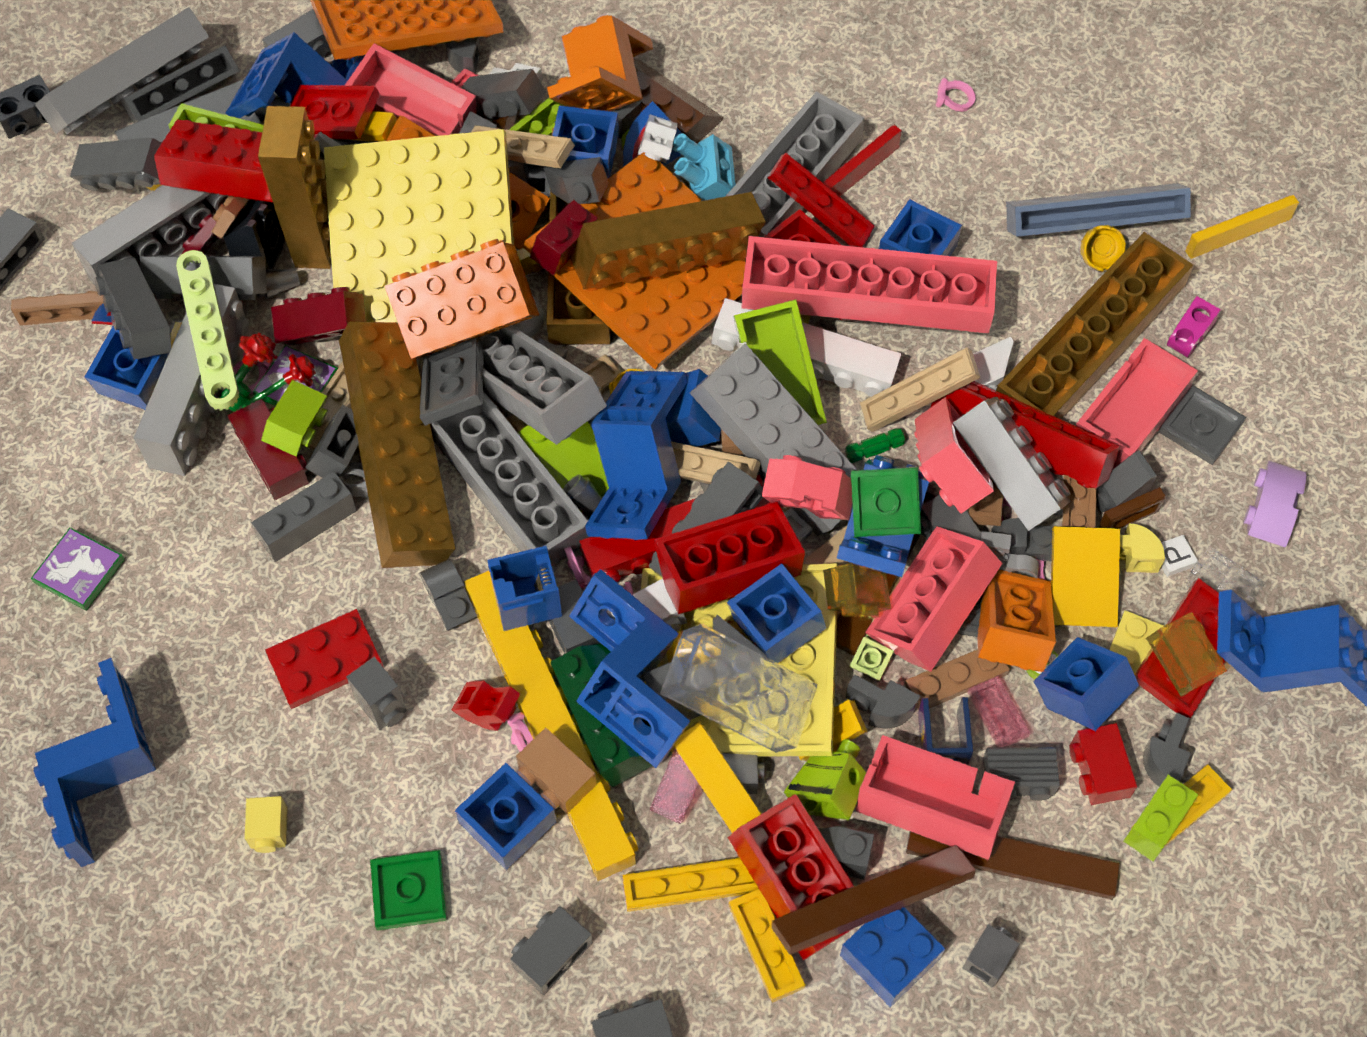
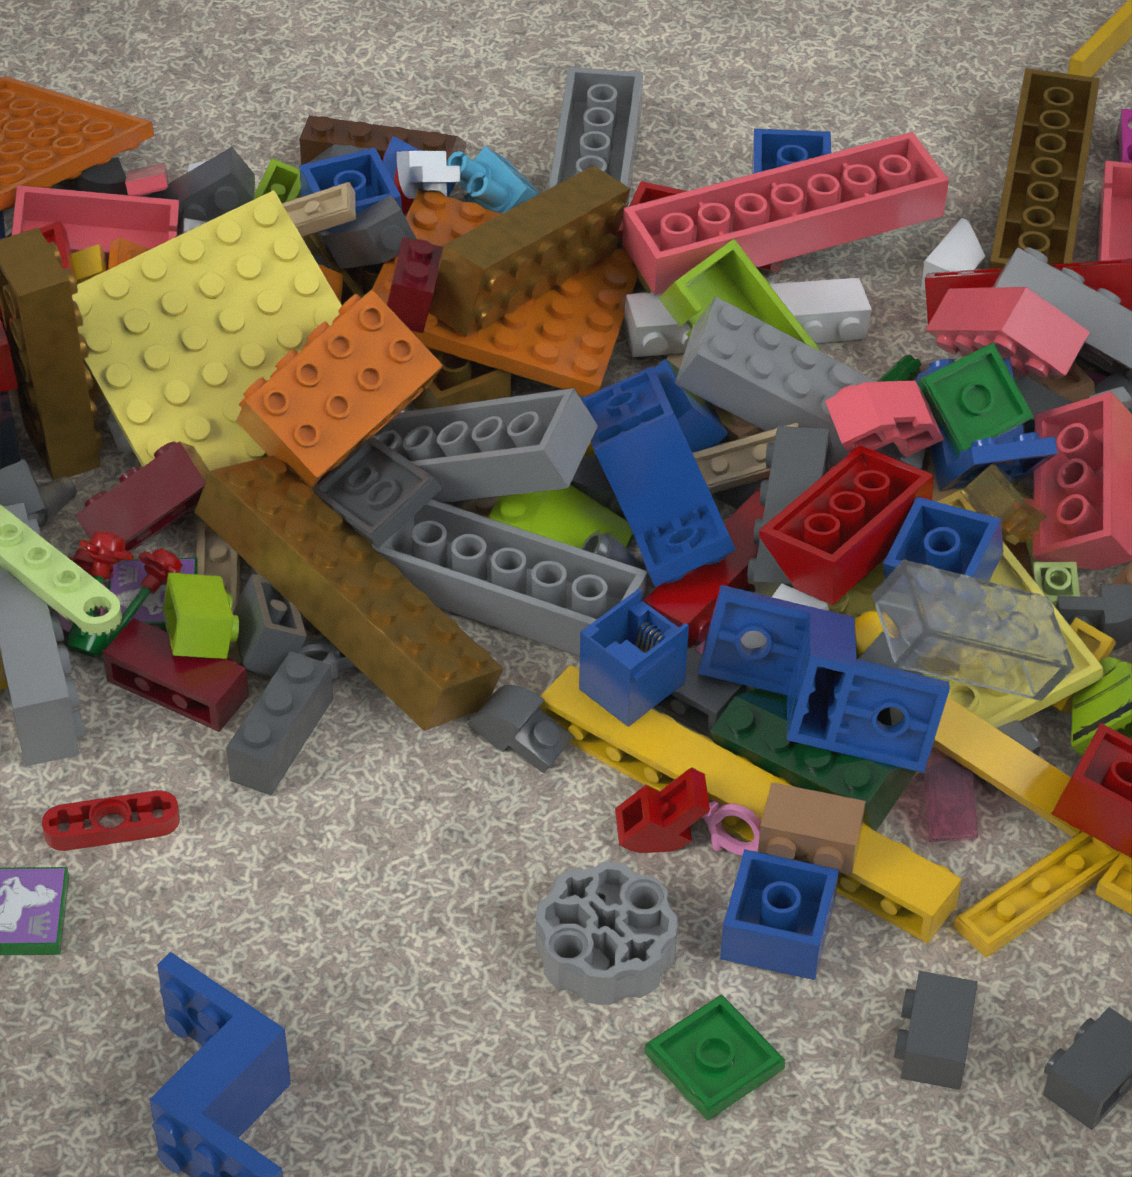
camera: 30 degrees left, 15 degrees down
(159, 524) = (94, 810): none -> red beam
(266, 823) = (487, 1064): light yellow brick -> none
(321, 658) = (416, 865): red plate -> none
(373, 791) = (628, 931): none -> light grey connector
(377, 694) = (526, 855): dark grey brick -> none
(478, 65) = (147, 179): none -> coral tile
(601, 66) = (309, 113): orange bracket -> none
(821, 201) = (644, 161): red tile -> none
(865, 161) = (662, 130): red tile -> none
(920, 389) = (910, 299): tan tile -> none
(943, 98) = (693, 27): bright pink piece -> none
(1097, 209) = (953, 74): sand blue brick -> none
(1102, 247) = (986, 106): yellow hair -> none

